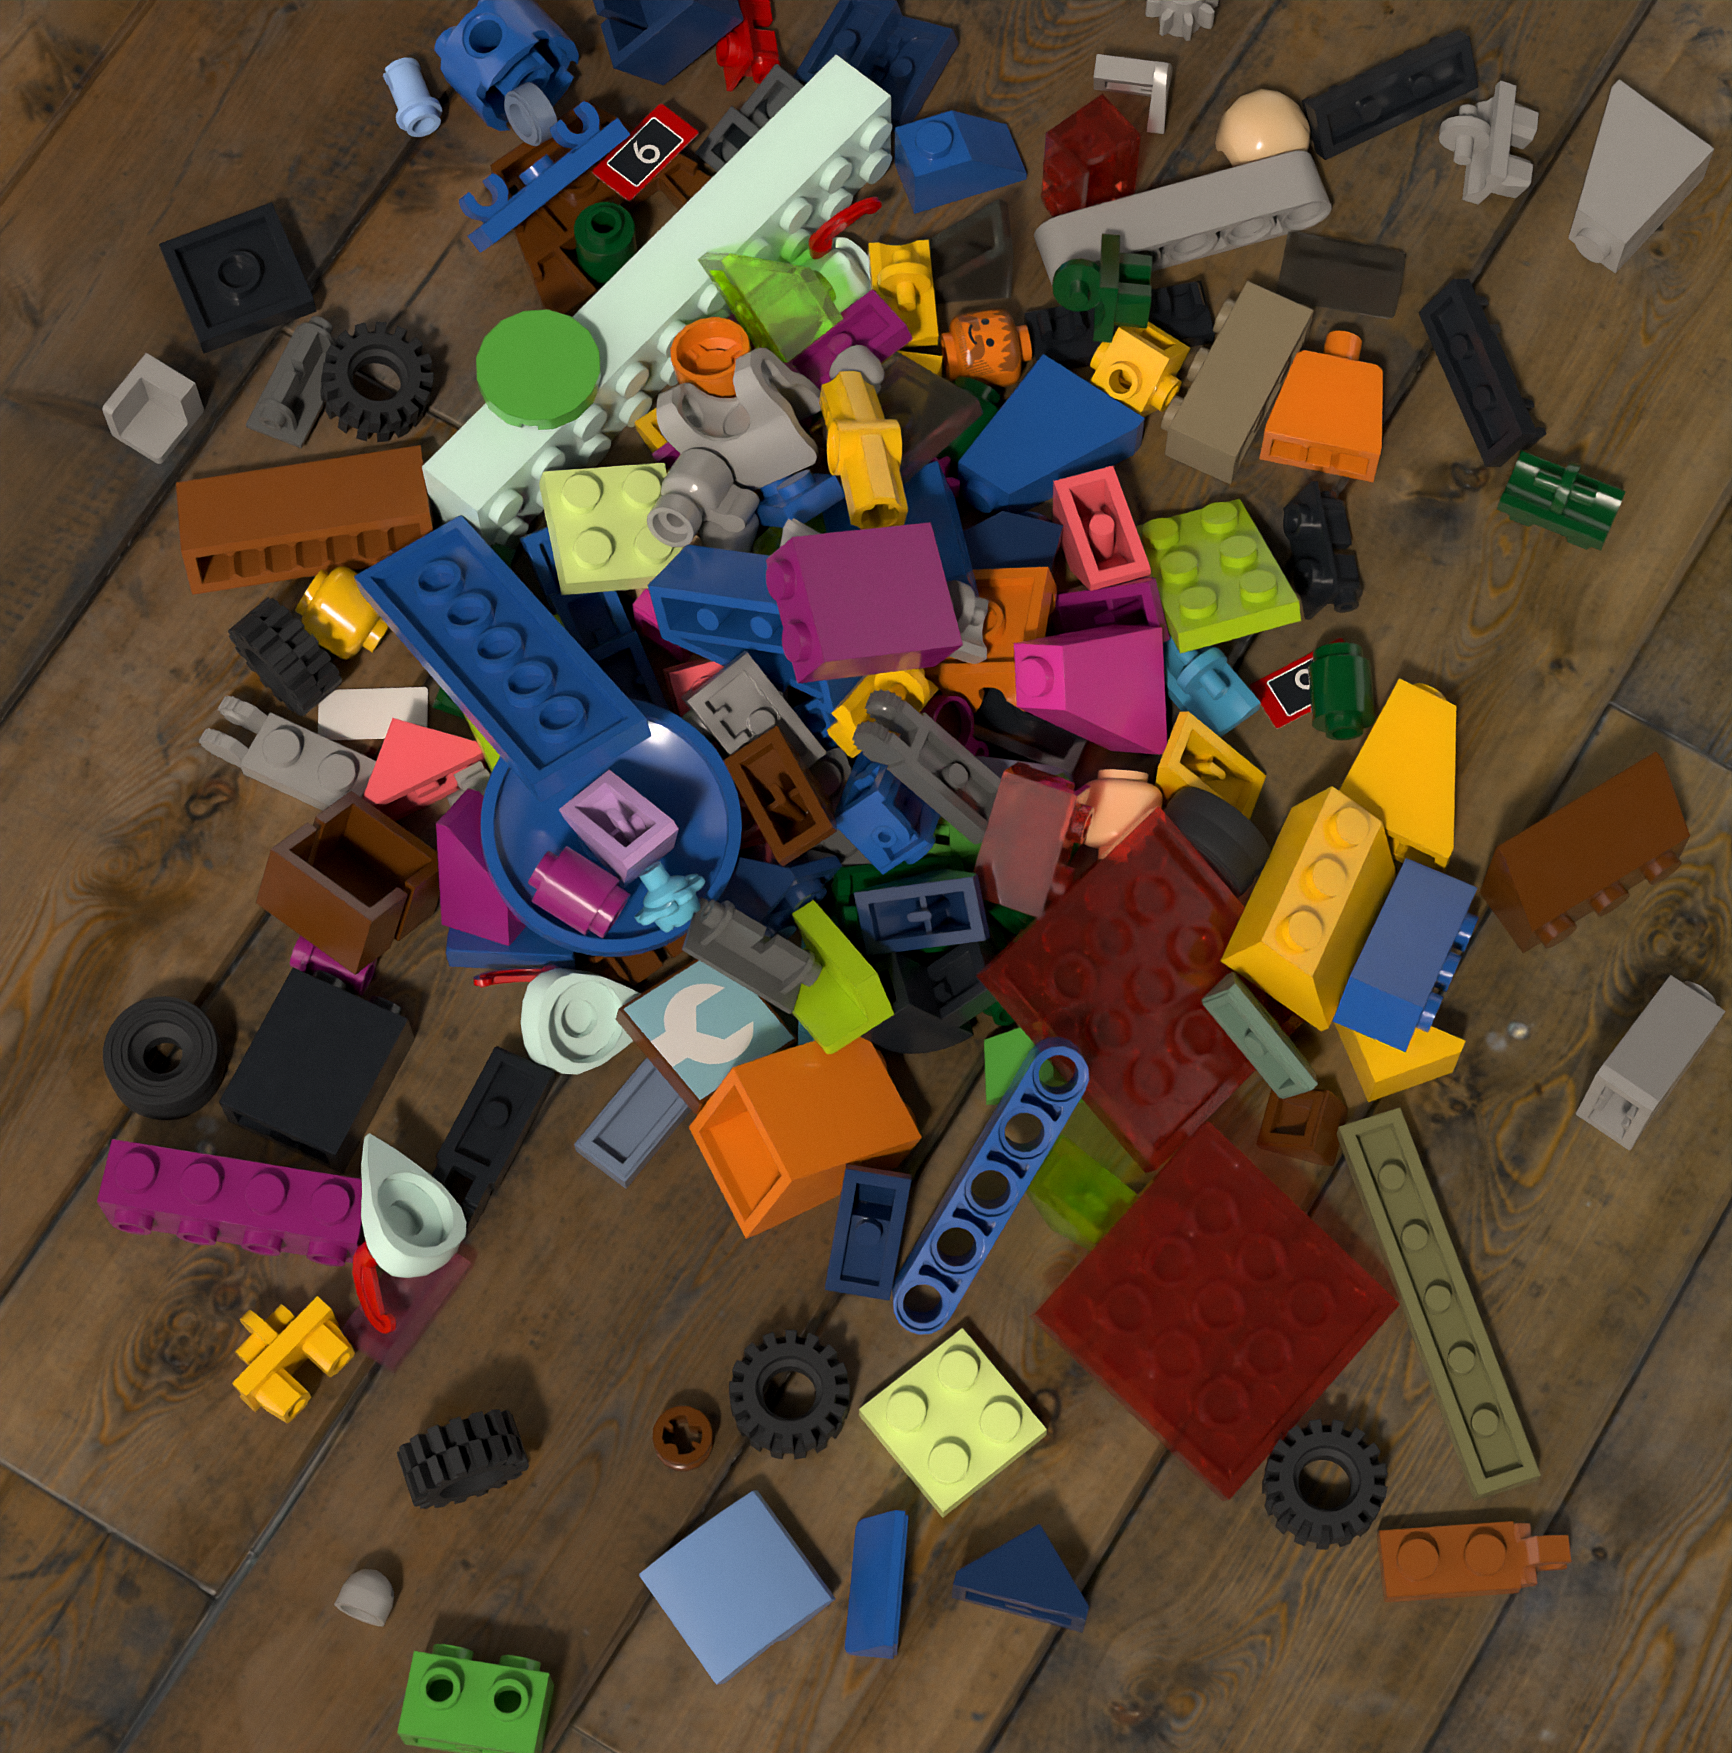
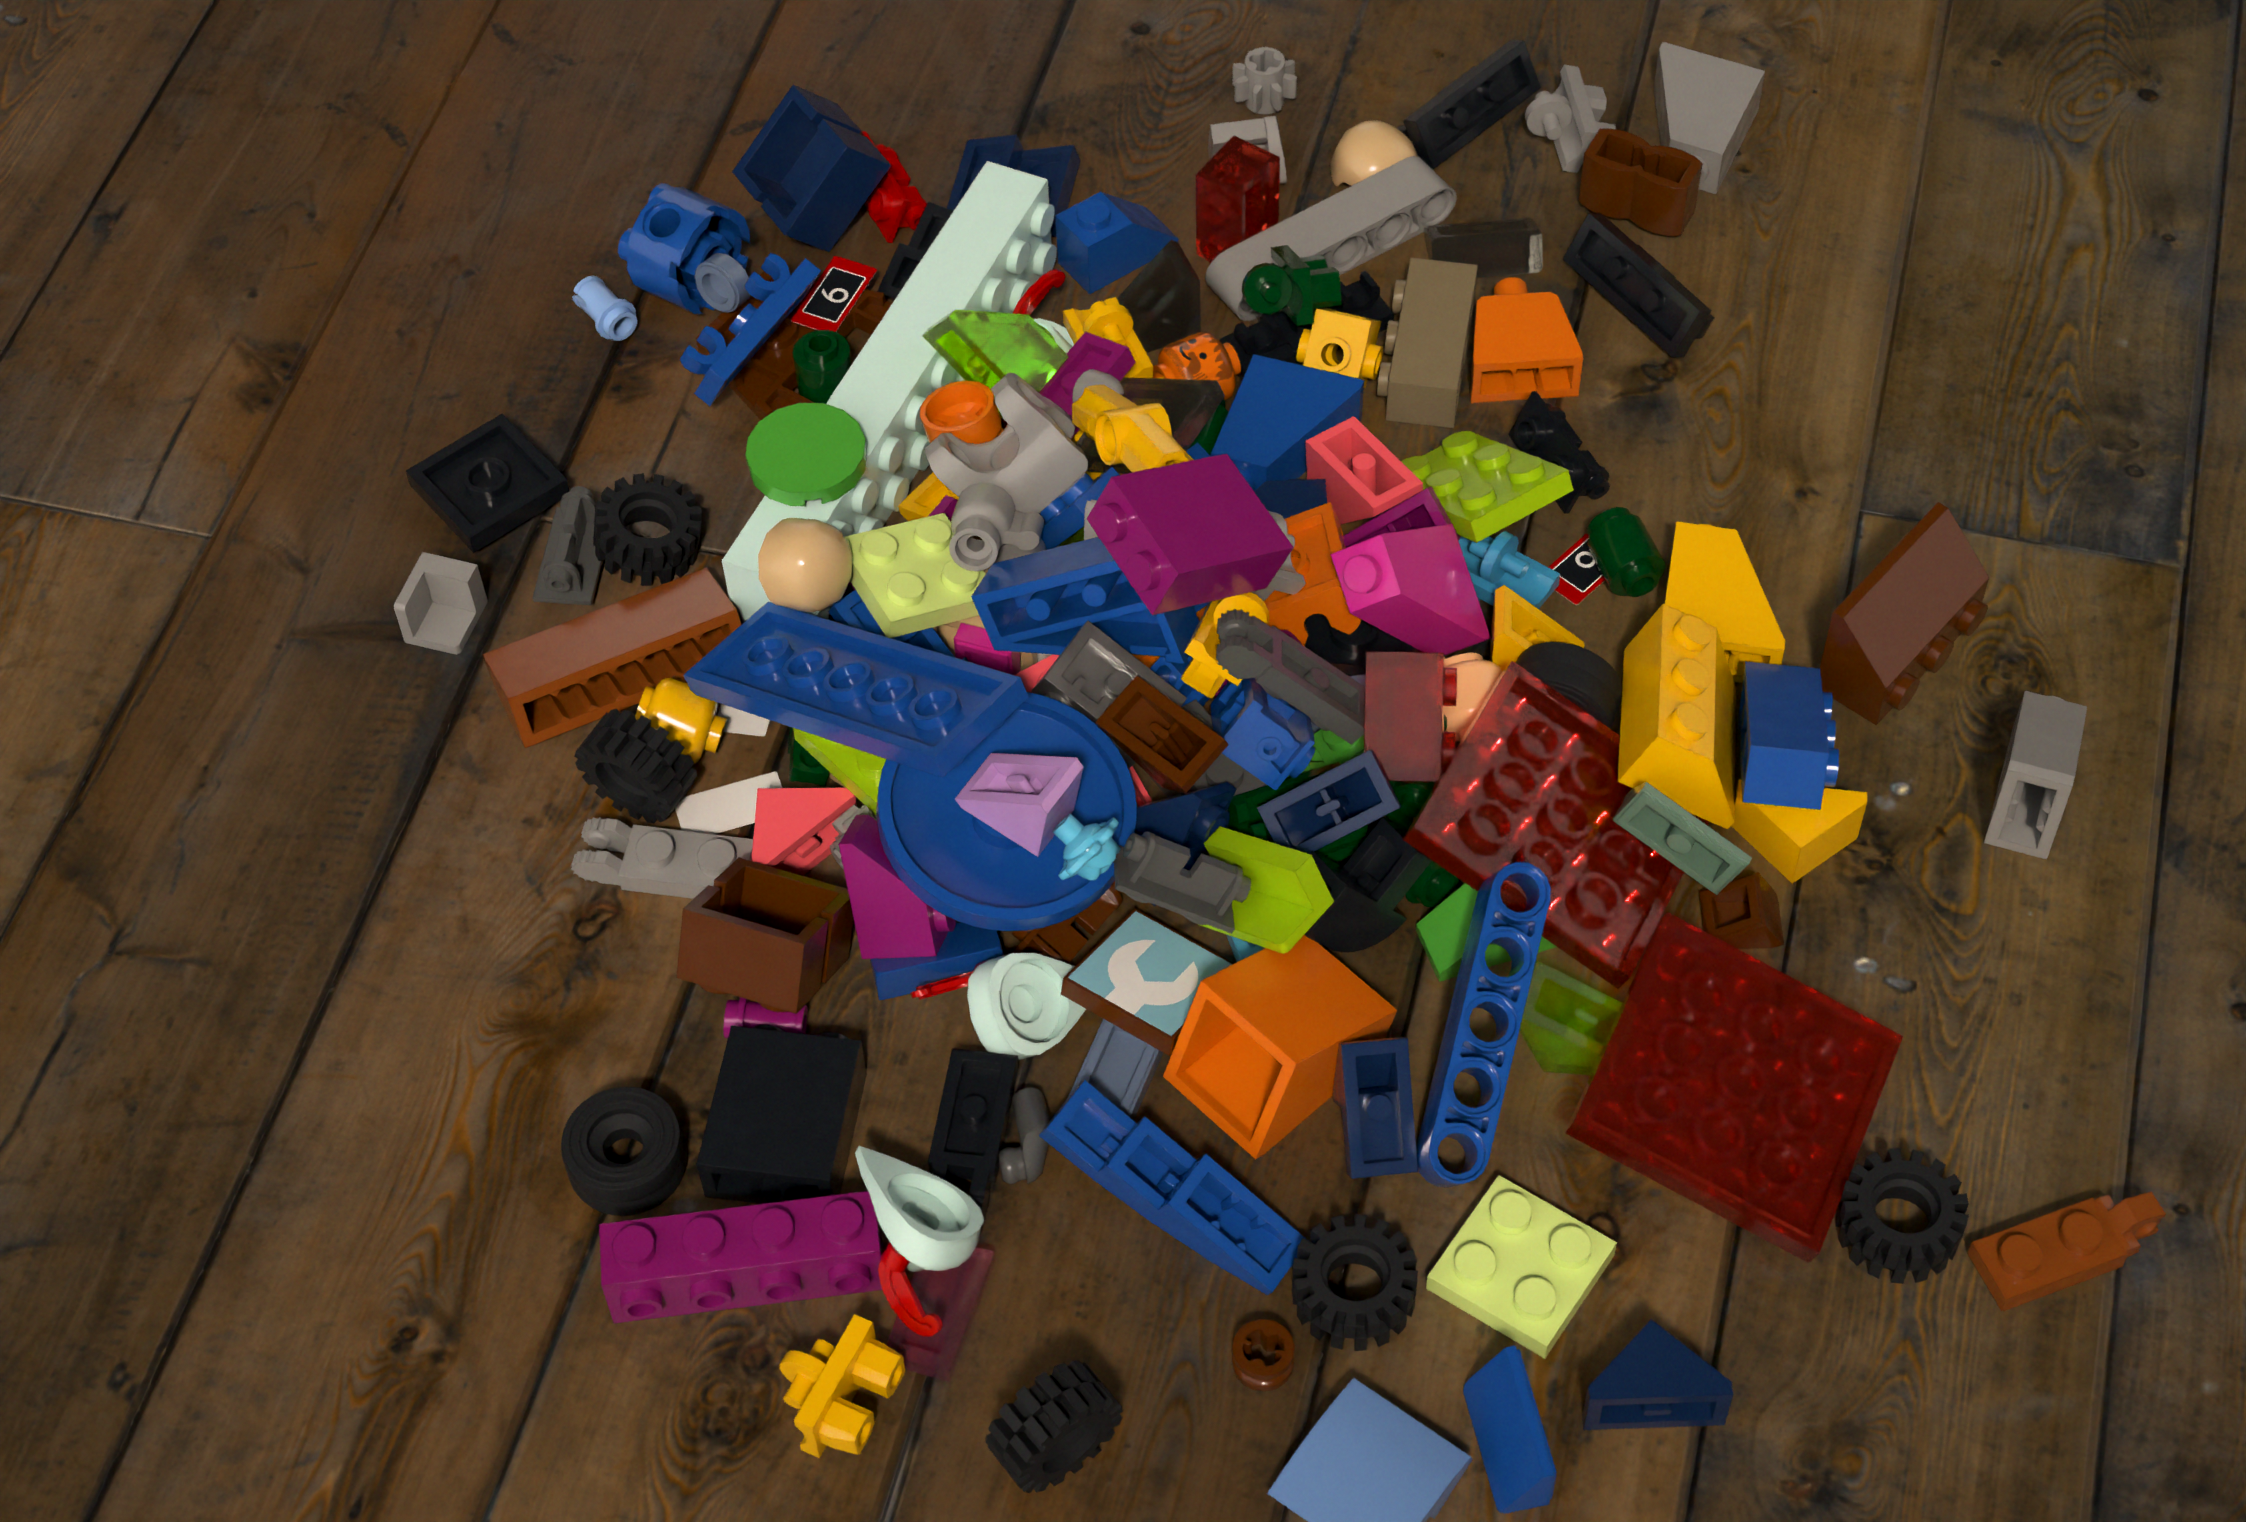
camera: 15 degrees left, 15 degrees down
(499, 498) = (804, 564): none -> tan hair
(544, 1157) = (1028, 1159): none -> dark grey arm
(578, 892) = (999, 861): magenta brick -> none
(655, 1250) = (1173, 1190): none -> blue slope
(1437, 1305) = (1939, 1032): olive plate -> none
(1533, 254) = (1640, 182): none -> reddish brown brick
(1561, 500) = (1753, 358): dark green hips -> none

